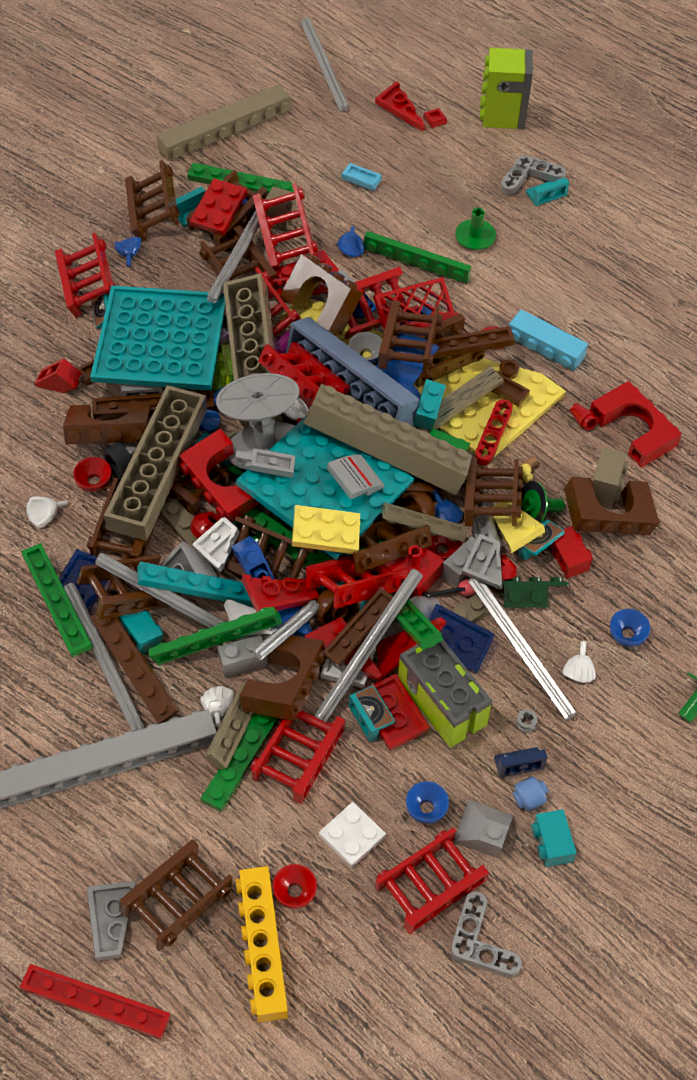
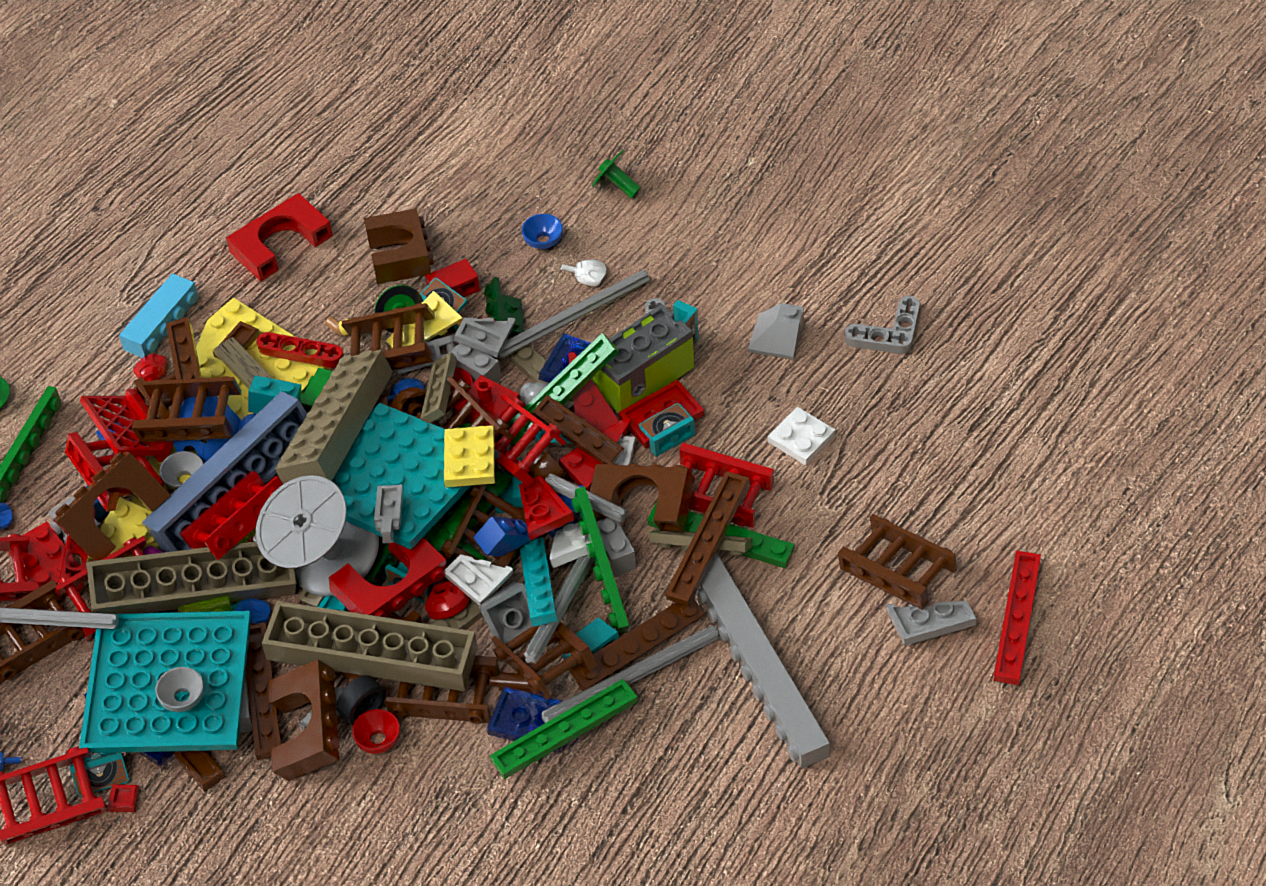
camera: 90 degrees left, 5 degrees down
(43, 510) = (431, 778): white piece -> none
(59, 377) = (219, 802): red slope -> none
(81, 324) = (123, 798): none -> red tile
(136, 331) = (176, 681): none -> light grey piece
(217, 701) = (665, 565): white piece -> none
(219, 721) = (707, 538): none -> reddish brown plate
(273, 1006) = (930, 488): yellow brick -> none
(294, 875) = (868, 461): red piece -> none
(355, 476) = (394, 439): light grey slope -> none
(368, 645) = (592, 417): light grey axle -> none
(431, 793) = (761, 367): blue piece -> none
(434, 903) = (848, 348): red fence -> none
(463, 588) = (506, 367): hinge -> none
(487, 740) = (688, 315): none -> teal panel
(509, 368) = (206, 343): reddish brown tile -> none
(520, 762) = (707, 306): dark blue bracket -> none
(530, 793) = (737, 298): medium blue head -> none
(554, 838) = (780, 278): teal brick -> none
(584, 417) = (269, 280): red cone -> none
(609, 476) = (354, 248): dark tan brick -> none

